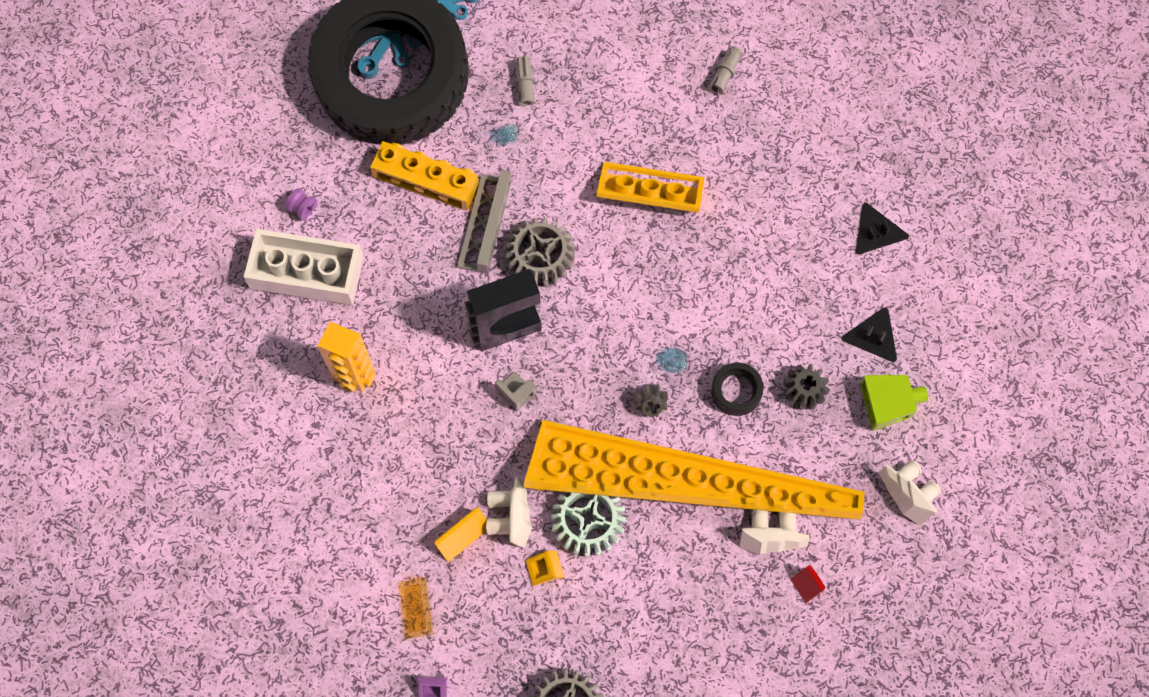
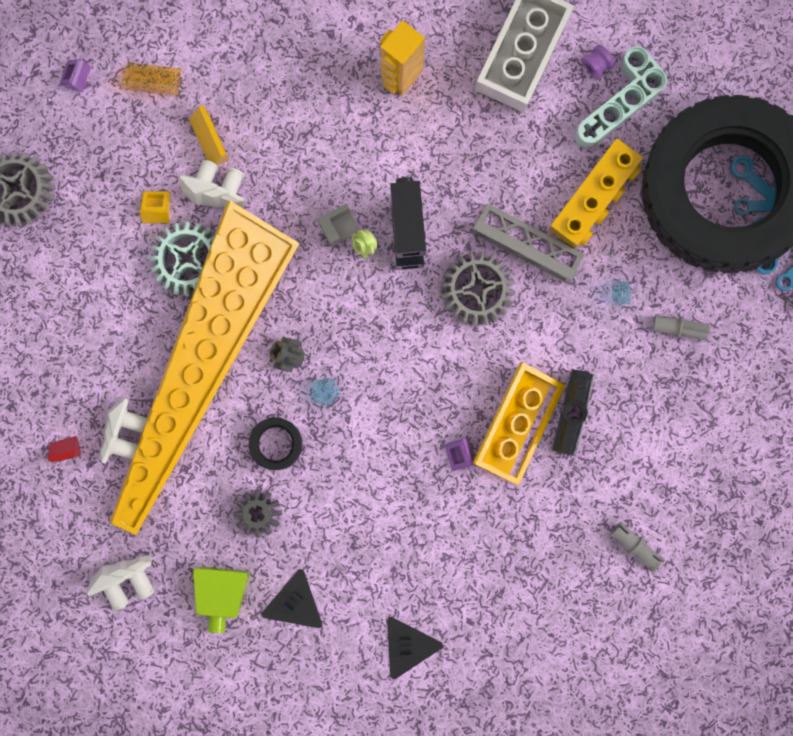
camera: 105 degrees right, 15 degrees up
(336, 178) = (617, 105): none -> light aqua beam
(525, 361) = (364, 243): none -> yellowish green plate
(642, 145) = (577, 394): none -> black piece
(693, 230) = (460, 454): none -> medium lavender slope

